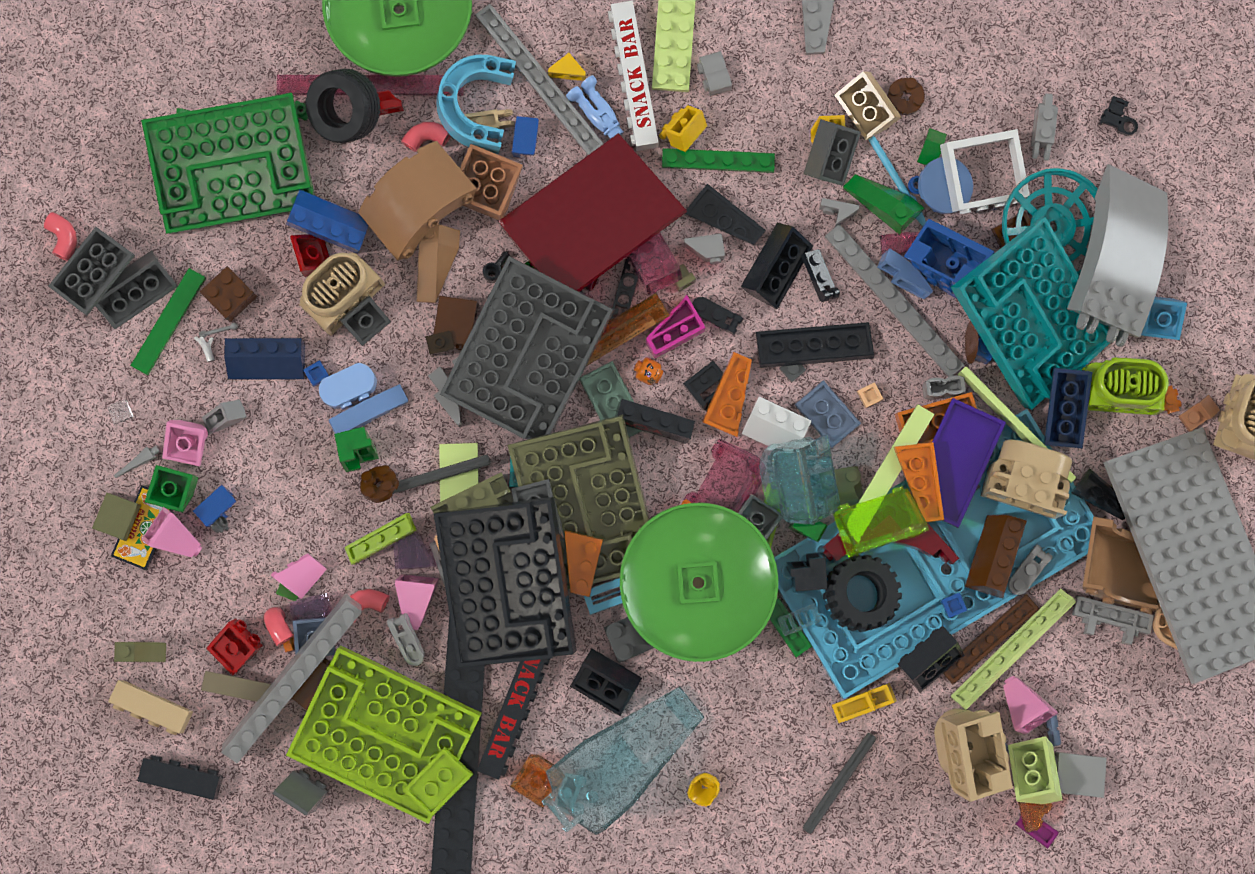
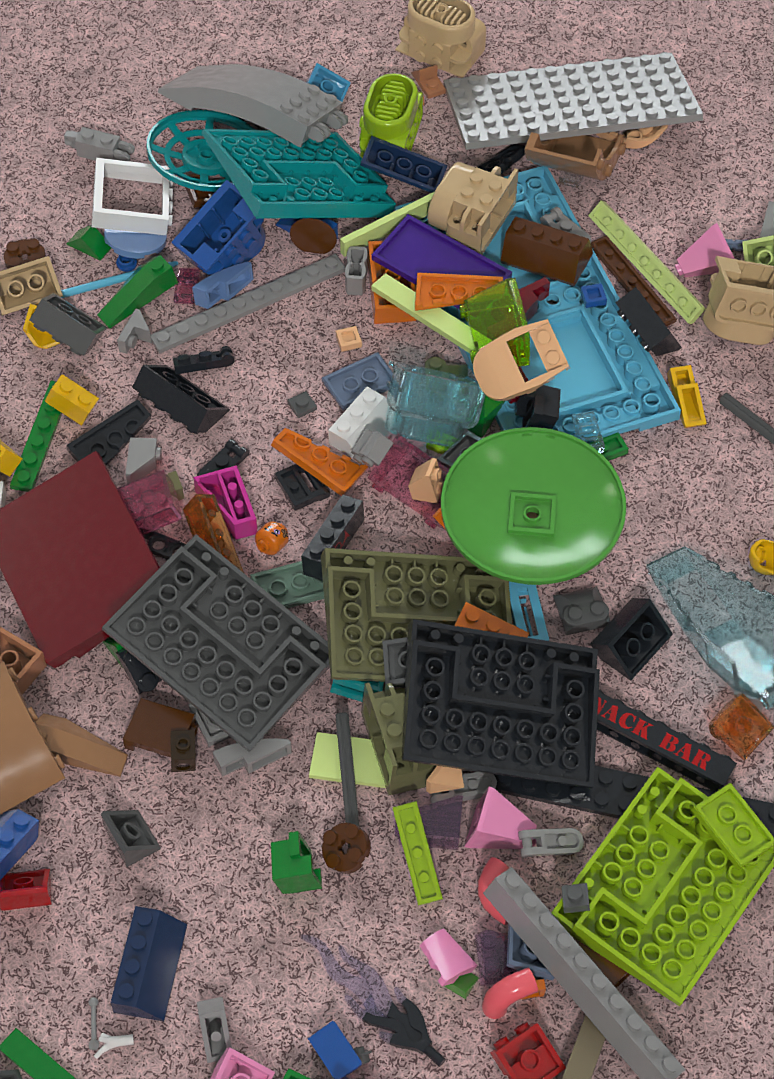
camera: 80 degrees left, 25 degrees down
(228, 294) = (49, 996): reddish brown brick -> none
(257, 533) = (379, 1011): none -> piece
(302, 792) = (731, 992): dark grey slope -> none
(316, 373) = (184, 904): blue plate -> none
(337, 288) = (85, 853): tan brick -> none
(348, 386) = (211, 867): light blue brick -> none
(349, 664) = (575, 898): none -> dark grey plate
(369, 410) = (248, 848): medium blue slope -> none
(494, 268) = (106, 680): black bar -> none
(721, 490) = (427, 482): none -> light nougat slope
(743, 436) = (371, 448): none -> light grey brick
(751, 176) = (71, 399): none -> yellow brick
(814, 345) = (280, 378): black tile -> none
(820, 532) = (498, 371): none -> light nougat slope
(884, 583) = (582, 352): black tyre -> none
(1097, 612) = (618, 187): light grey hinge -> none
(1114, 119) = (108, 93): black piece -> none

